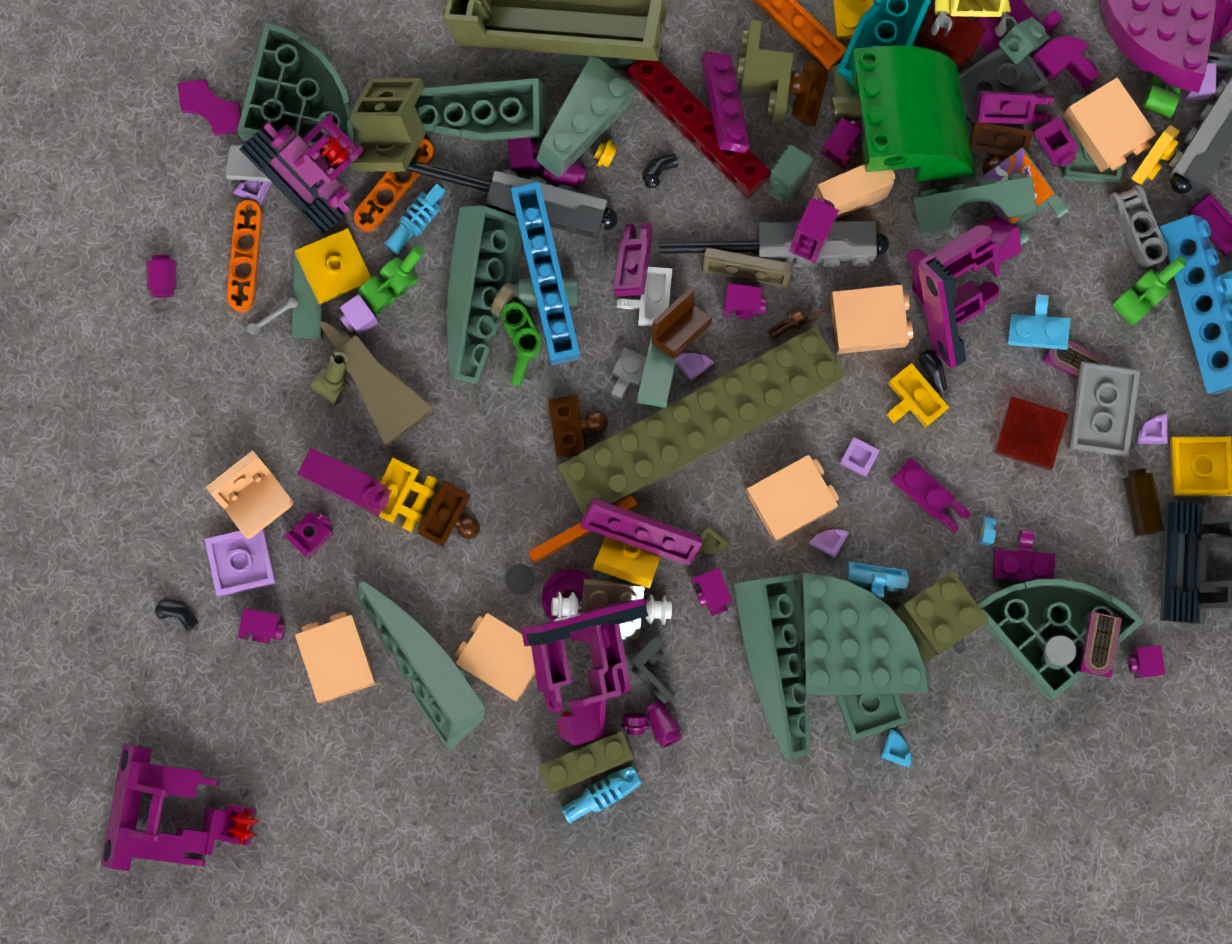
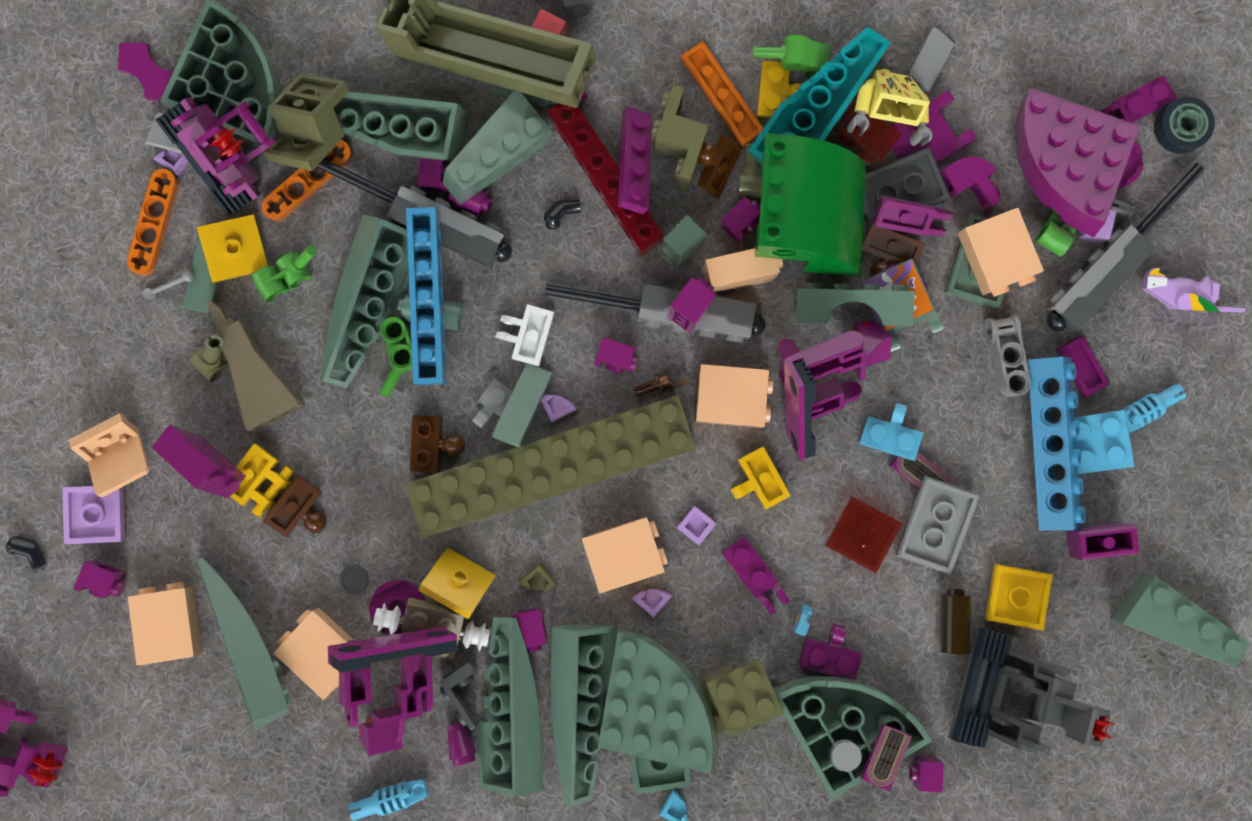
camera: 10 degrees right, 5 degrees up
(161, 276) = (69, 227): magenta brick -> none
(310, 545) = (174, 501): magenta brick -> none
(357, 316) = (247, 300): lavender plate -> none
(415, 218) = (321, 216): medium azure hinge -> none
(503, 298) = (386, 309): dark tan tile -> none
(571, 535) = (419, 546): orange tile -> none
(586, 762) = (381, 769): olive brick -> none
(605, 153) = (512, 187): yellow plate -> none
(633, 261) = (517, 297): magenta hinge -> none
(635, 723) = (432, 741): magenta plate -> none
(641, 532) = (472, 562): magenta plate -> none
(679, 325) = (549, 368): reddish brown panel -> none
(713, 698) = (511, 725): none -> sand green wedge
(747, 267) = (625, 324): dark tan tile -> none
(880, 577) = (689, 644): medium azure plate -> none
(934, 368) = (781, 448): black arm -> none
(1024, 39) = (935, 152): sand green bracket -> none
(1056, 134) = (946, 250): magenta brick -> none
(1147, 292) = (1002, 420): bright green beam -> none
(1154, 431) = (980, 553): lavender tile -> none
(1164, 149) = (1047, 284): yellow plate -> none

